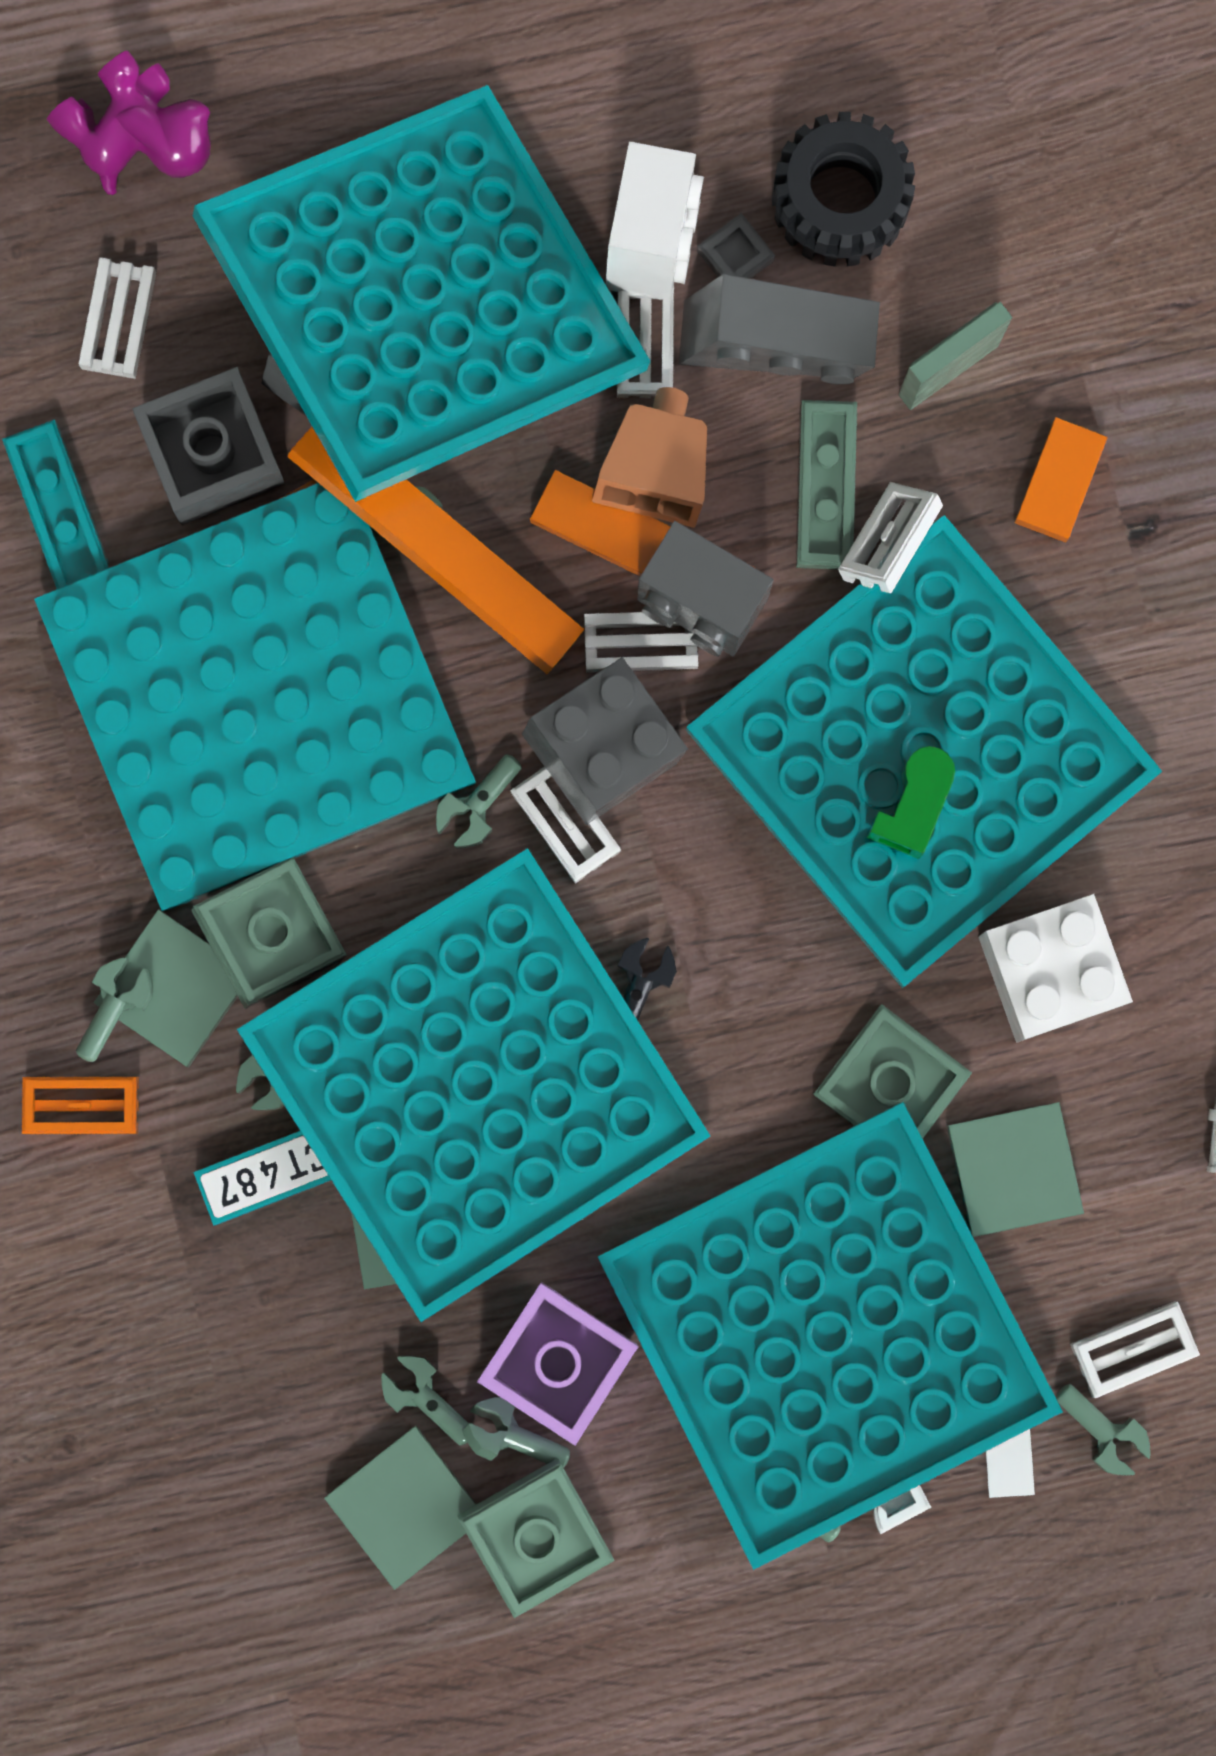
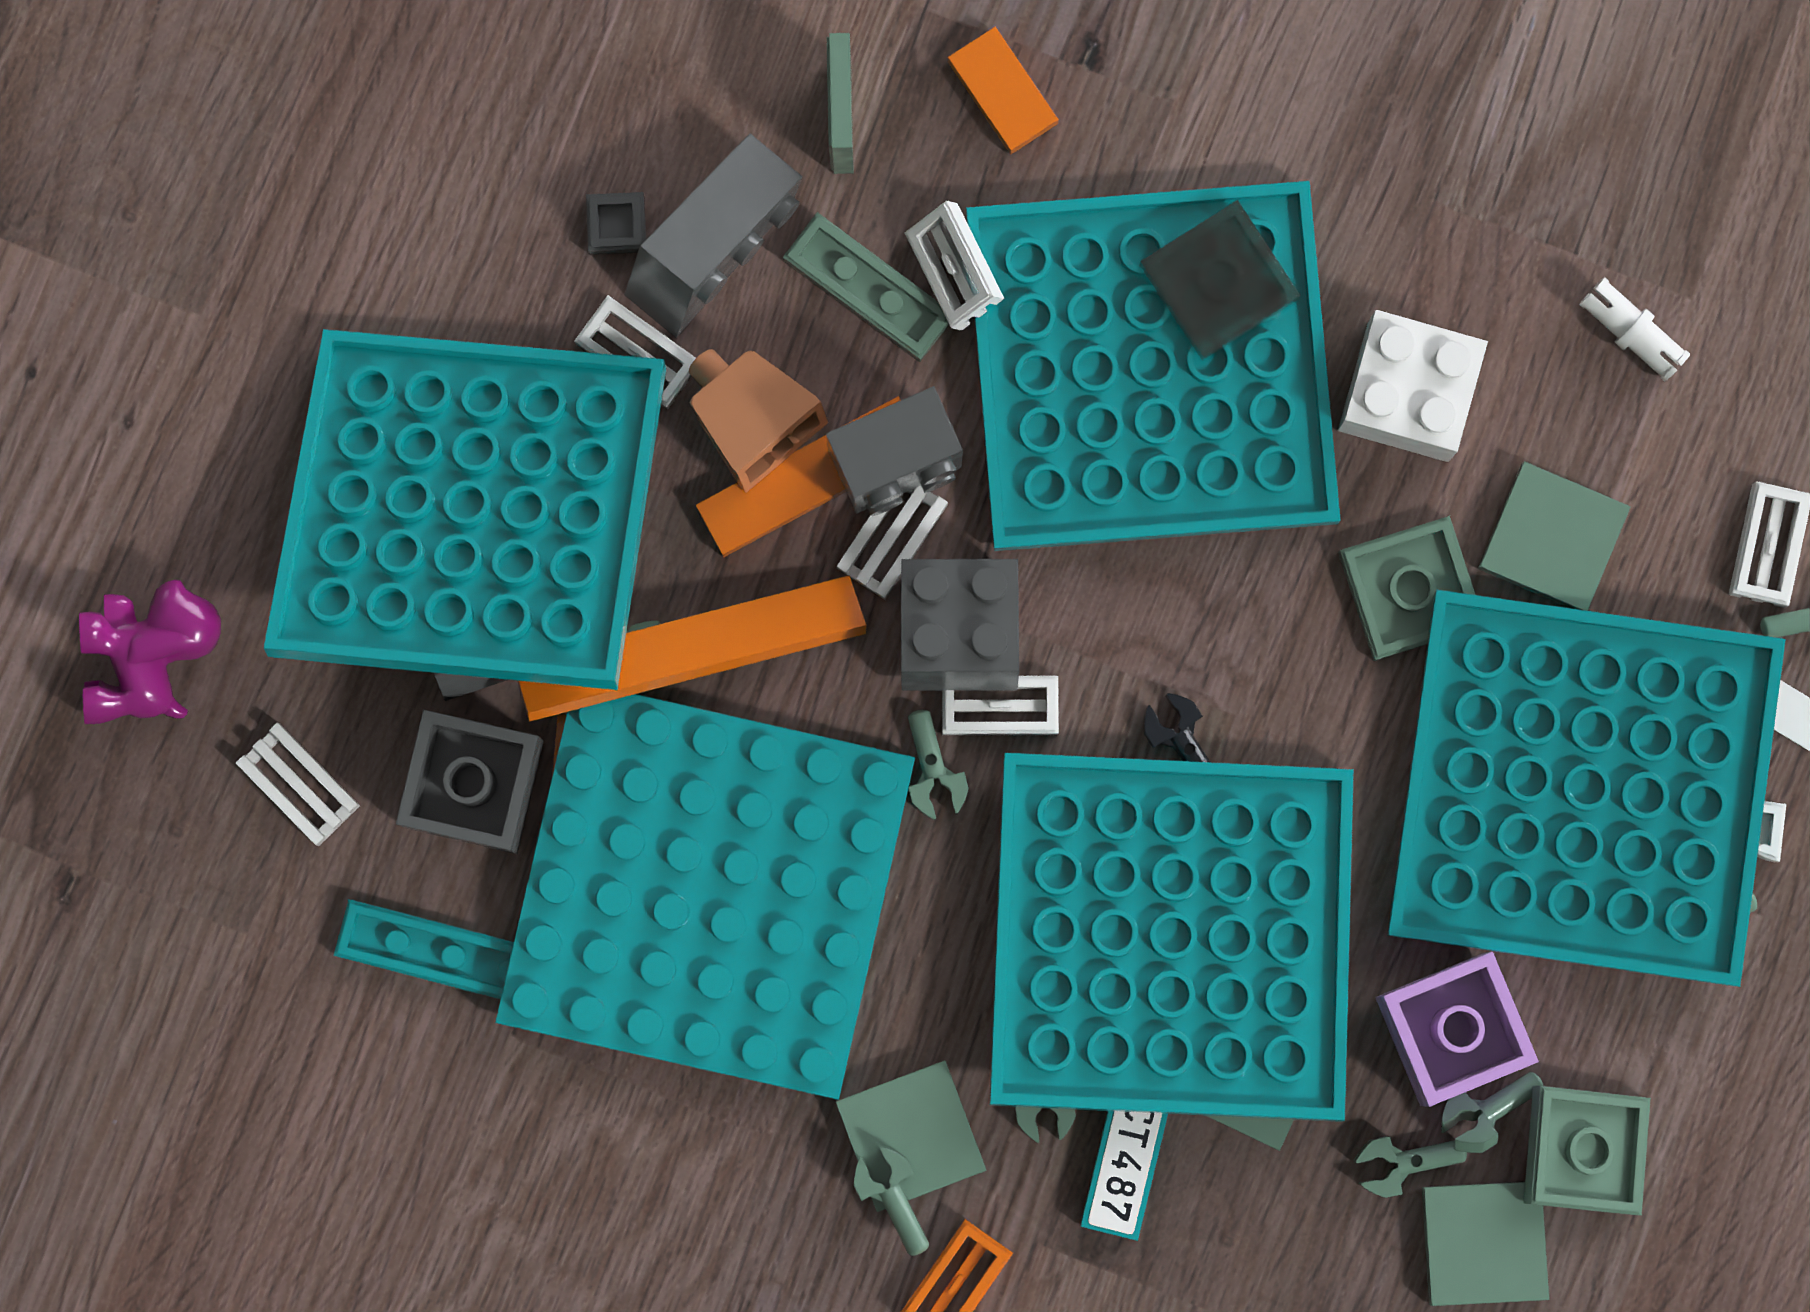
camera: 50 degrees left, 0 degrees up
(268, 932) = (921, 1021): sand green tile -> none
(653, 221) = (545, 274): white brick -> none
(850, 146) = (620, 50): black tyre -> none
(926, 786) = (1189, 384): green leg -> none
(1029, 754) = (1219, 280): none -> clear smoke tile

